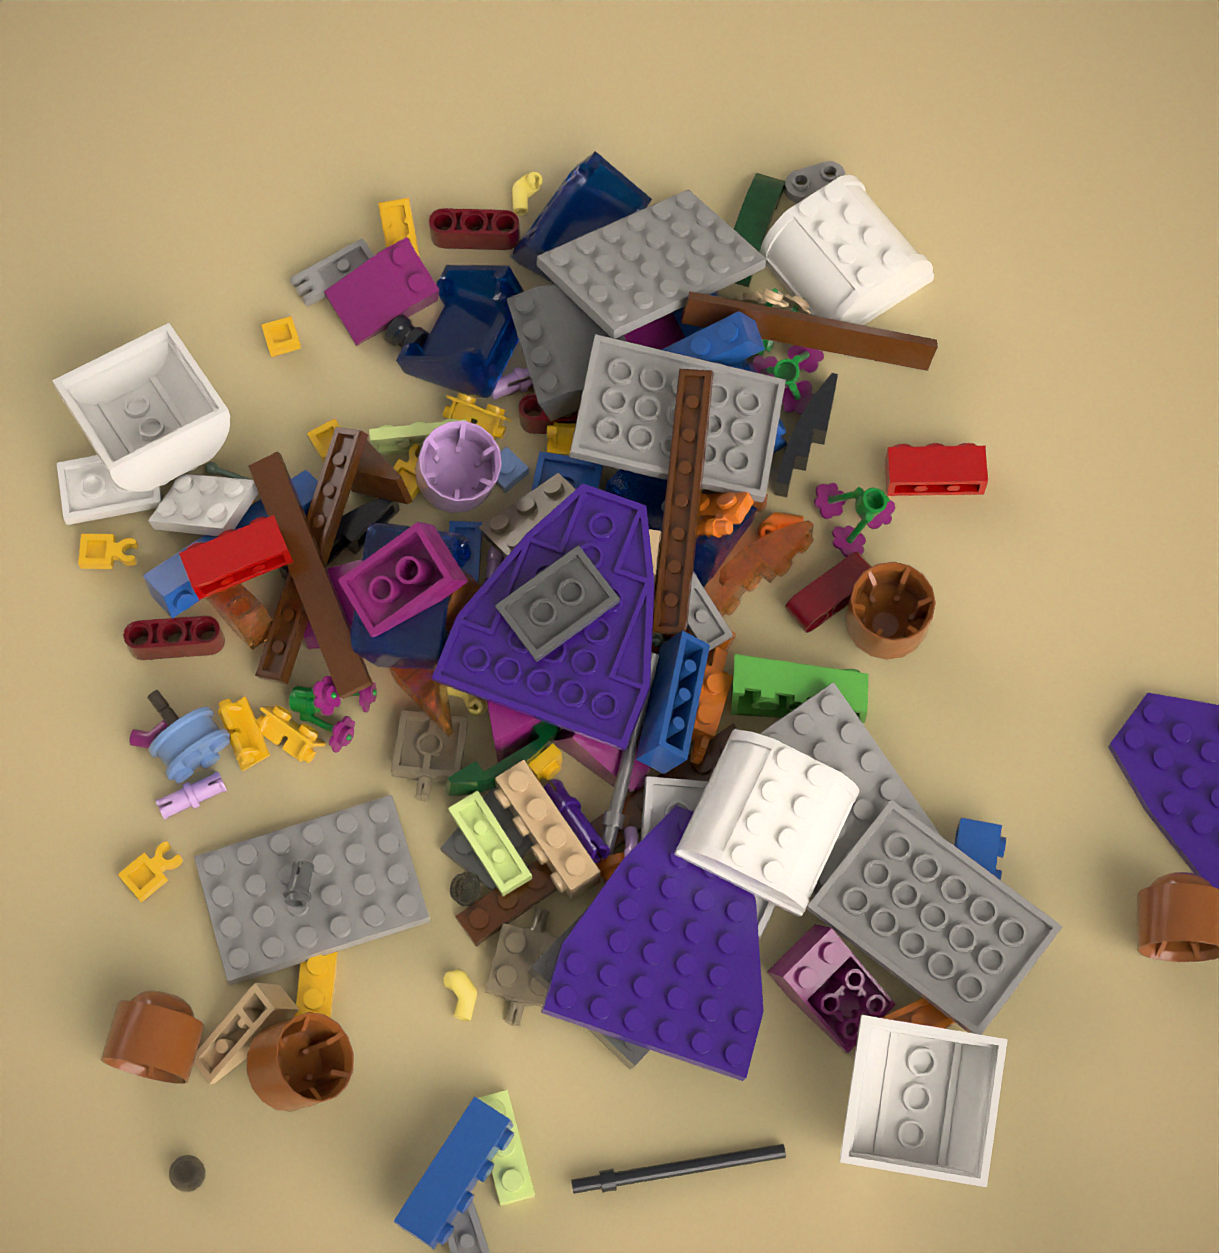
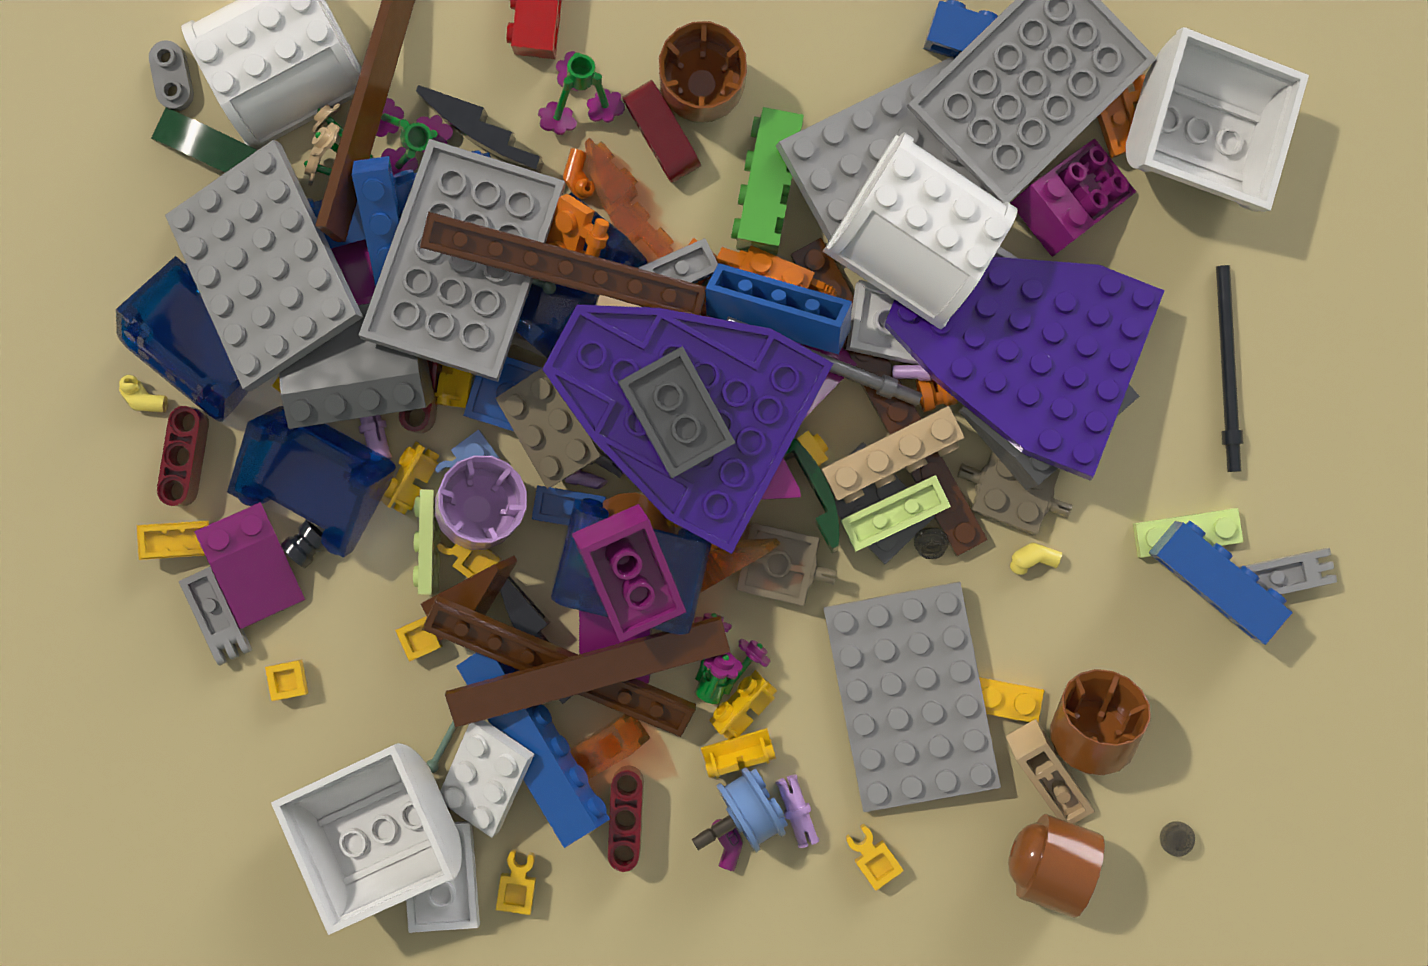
camera: 85 degrees left, 20 degrees up
(235, 556) = (564, 748): red brick -> none
(298, 890) = (916, 708): dark grey pin -> none
(582, 828) = (867, 430): dark purple pin -> none

